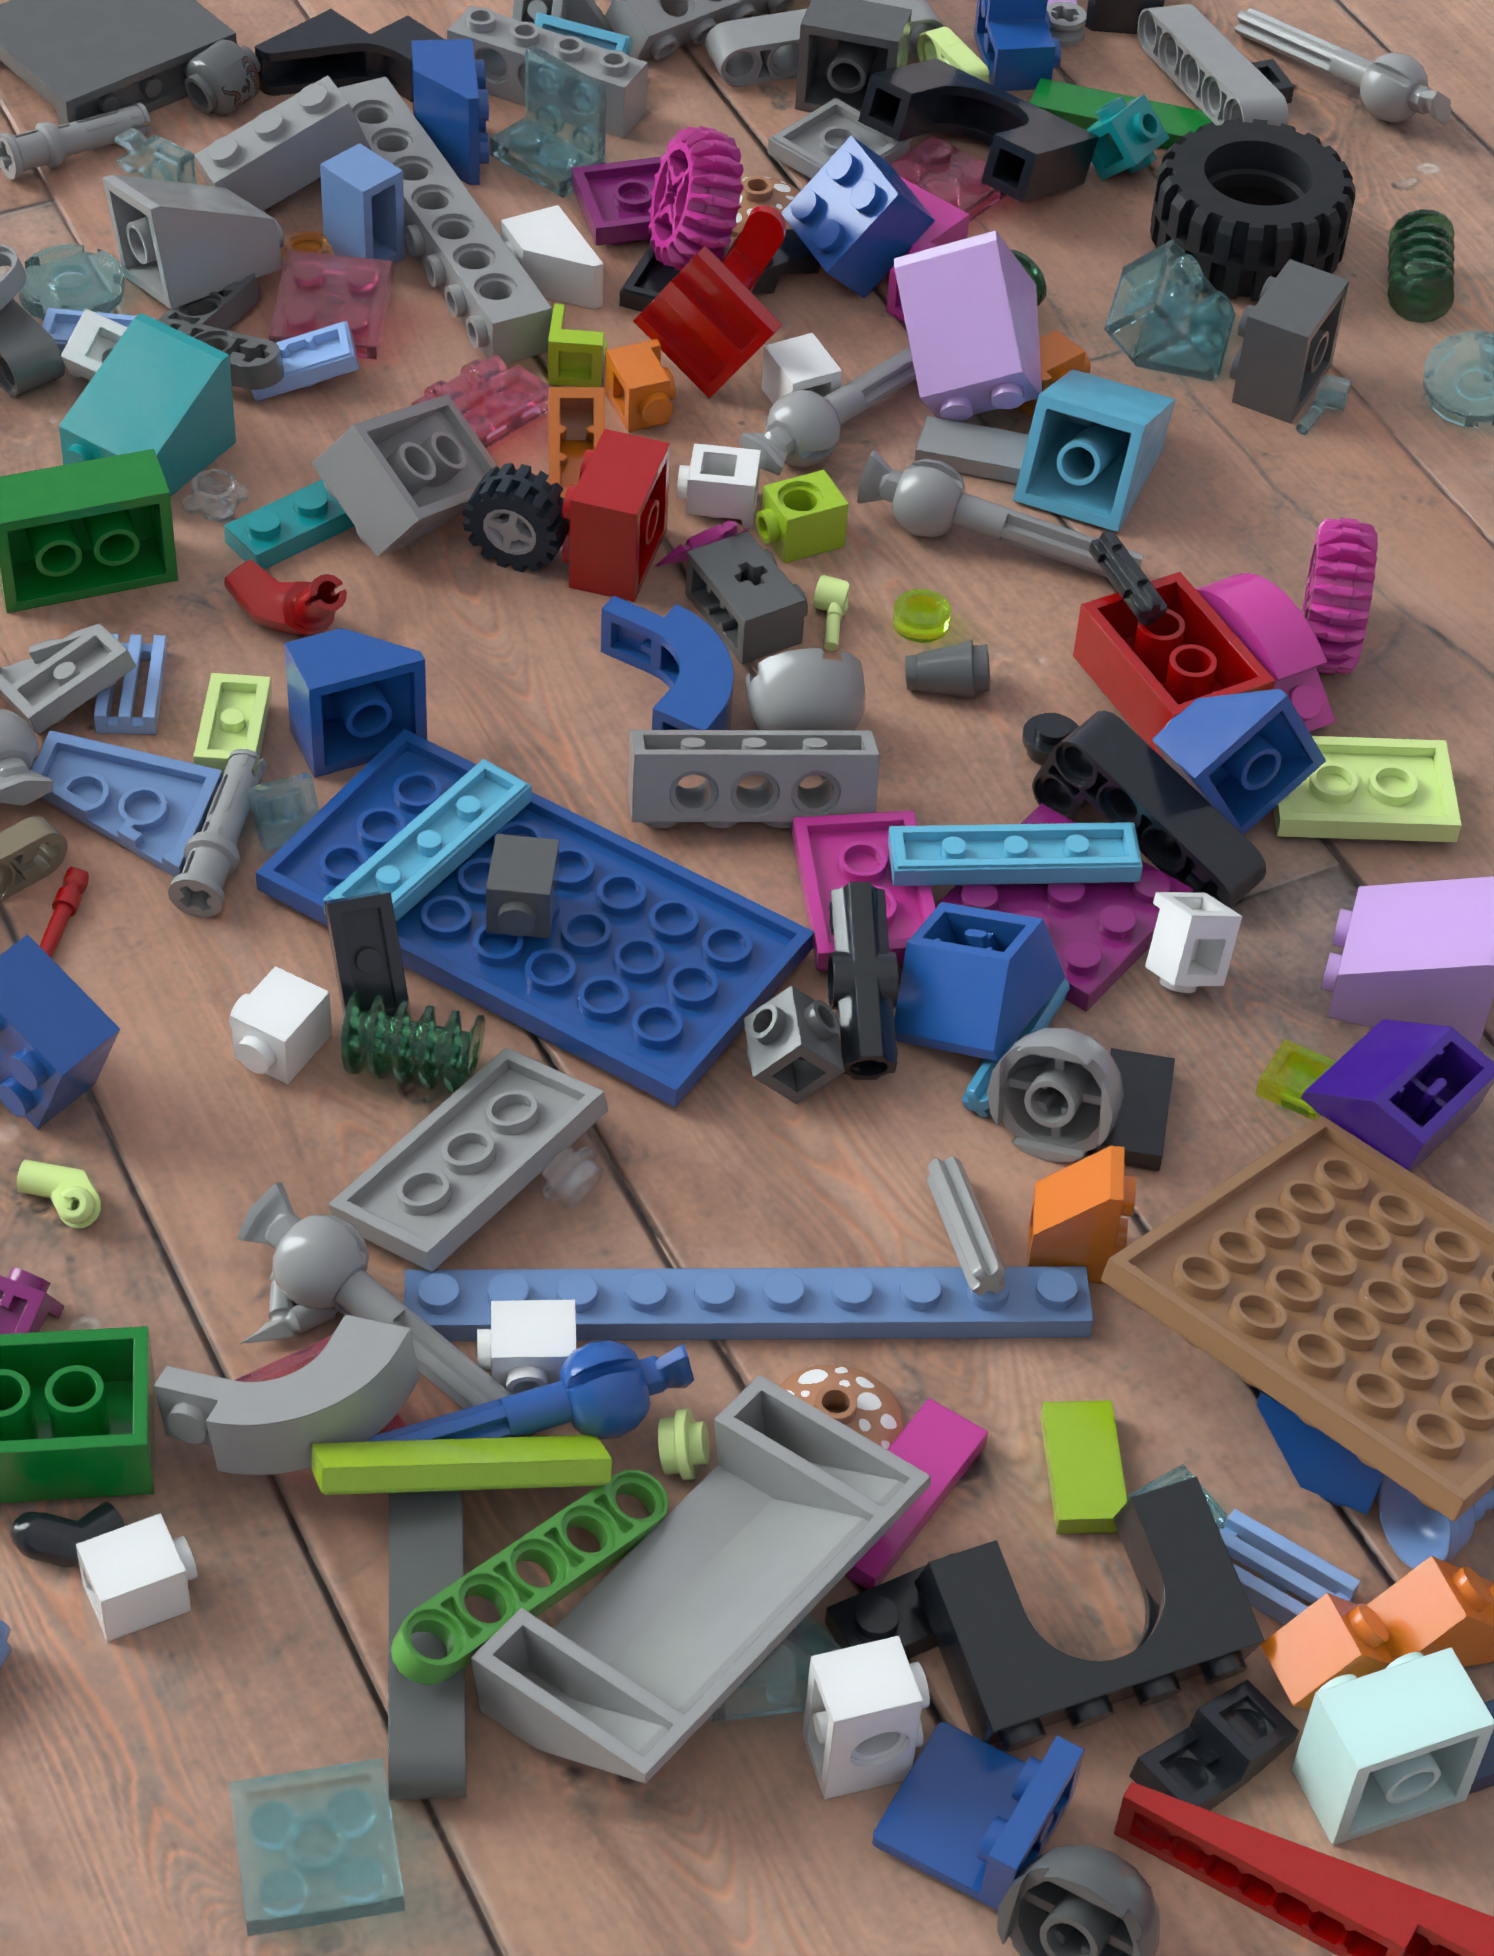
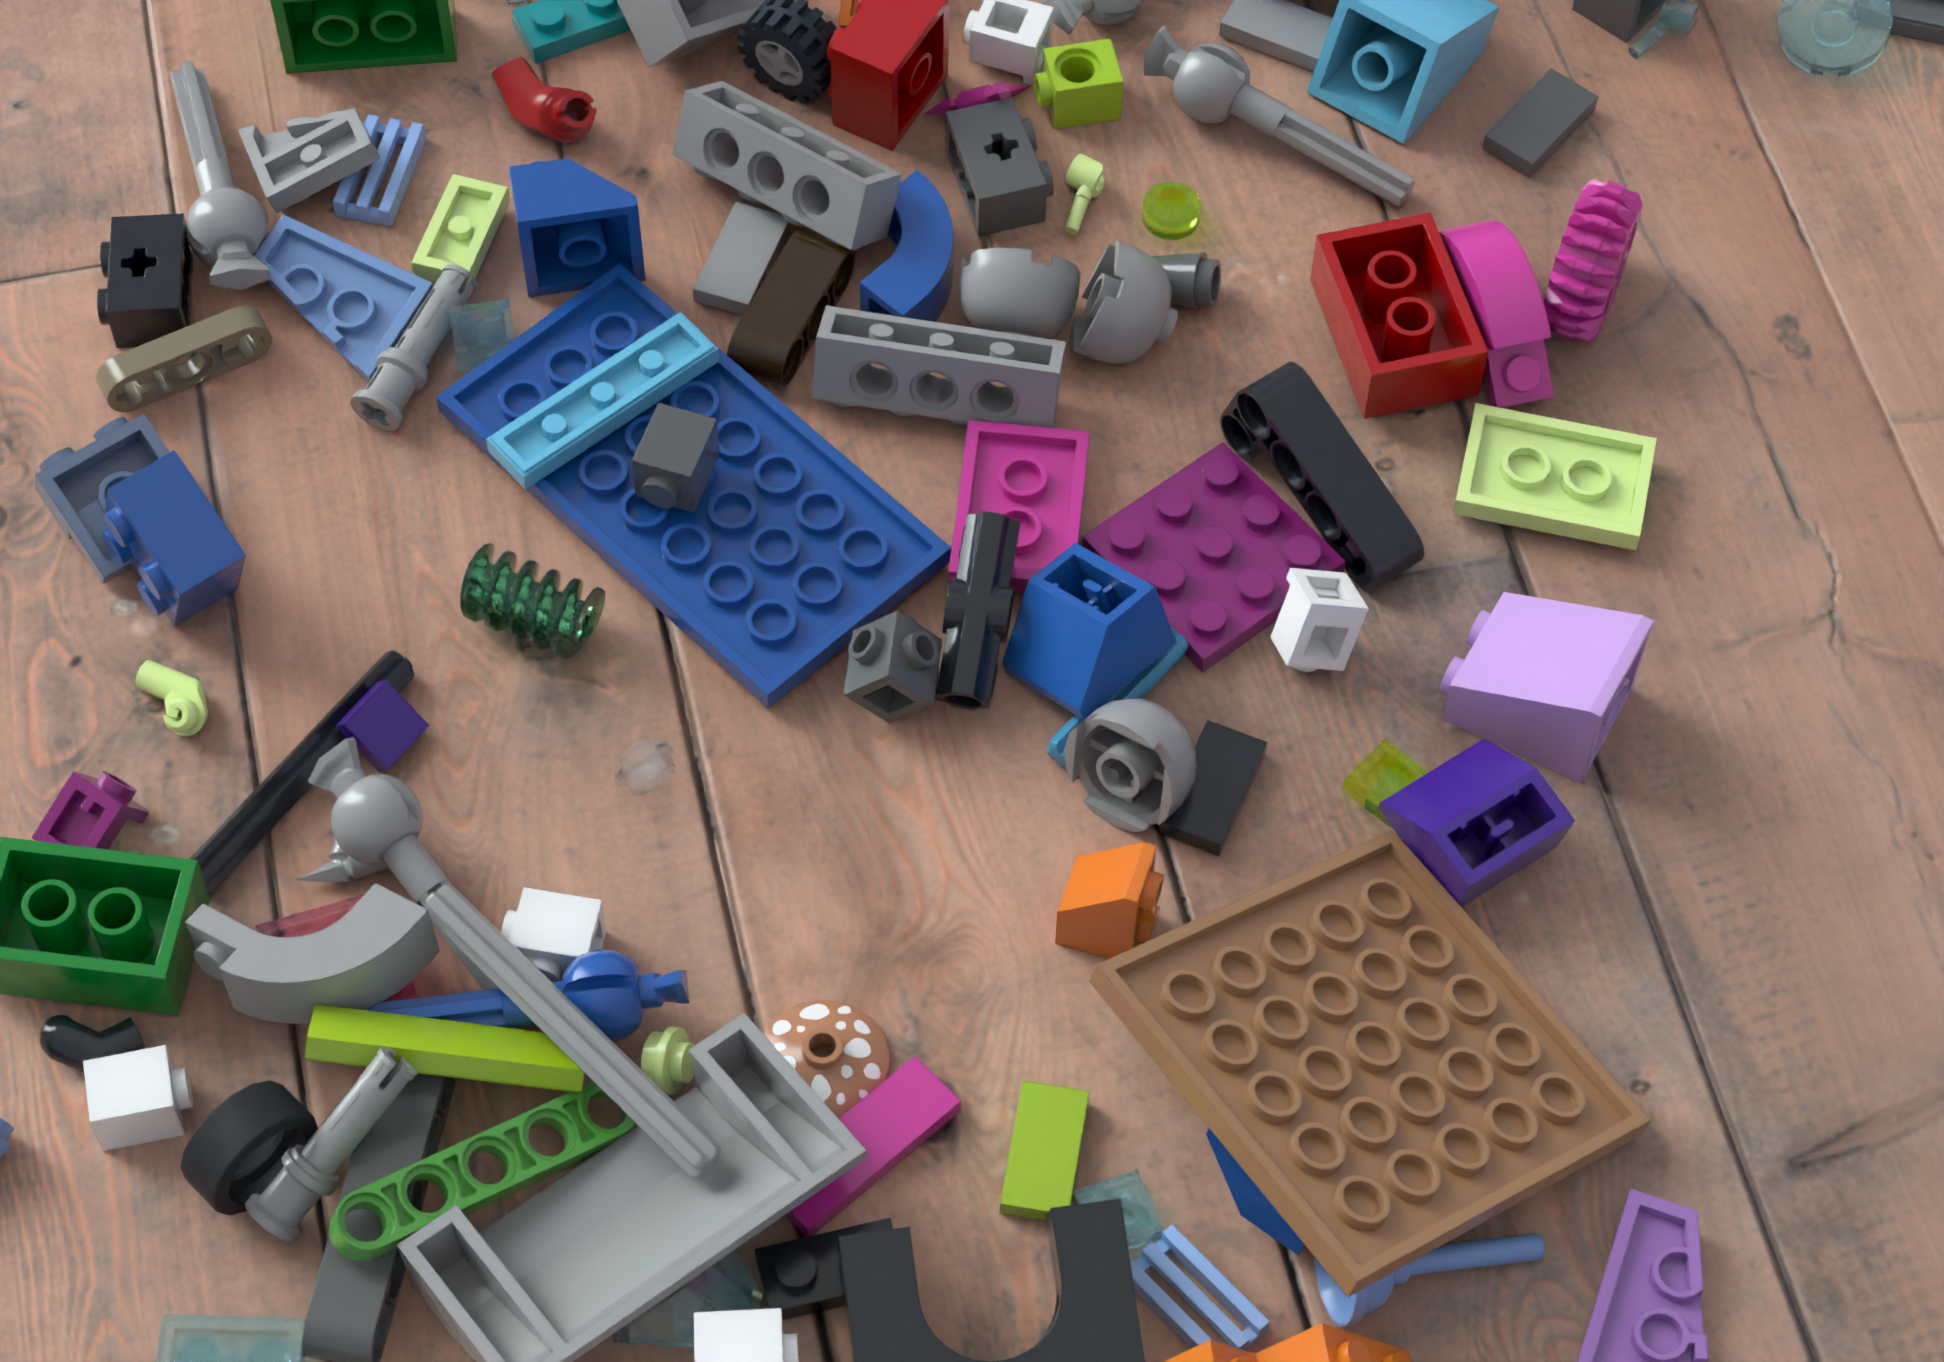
camera: 15 degrees right, 10 degrees up
(64, 906) = (256, 398): red piece -> none
(219, 1231) = (289, 779): none -> black axle
(278, 1597) = (243, 1144): none -> black tyre
(280, 1025) = (416, 562): white brick -> none
(298, 1170) = (382, 725): none -> dark purple tile
(350, 1607) = (313, 1168): none -> light grey pin
(366, 949) = (511, 502): black plate -> none
(469, 1158) = (552, 731): light grey plate -> none
(520, 713) = (741, 258): none -> light grey tile
(586, 744) = (790, 306): none -> dark brown beam
(592, 1421) = (573, 1032): none -> light grey axle
(630, 623) = (786, 165): none -> light grey brick
(765, 1302) = (792, 926): medium blue plate -> none
(912, 696) = (1124, 307): none -> light grey cylinder
(966, 1226) = (1001, 886): light grey axle -> none
(1014, 854) = (1171, 497): medium azure tile -> none
(1044, 733) = (1253, 362): black plate -> none
(1127, 578) = (1369, 215): black axle -> none
(1239, 496) = (1540, 122): none -> dark grey tile
(1241, 752) = (1421, 432): blue slope -> none

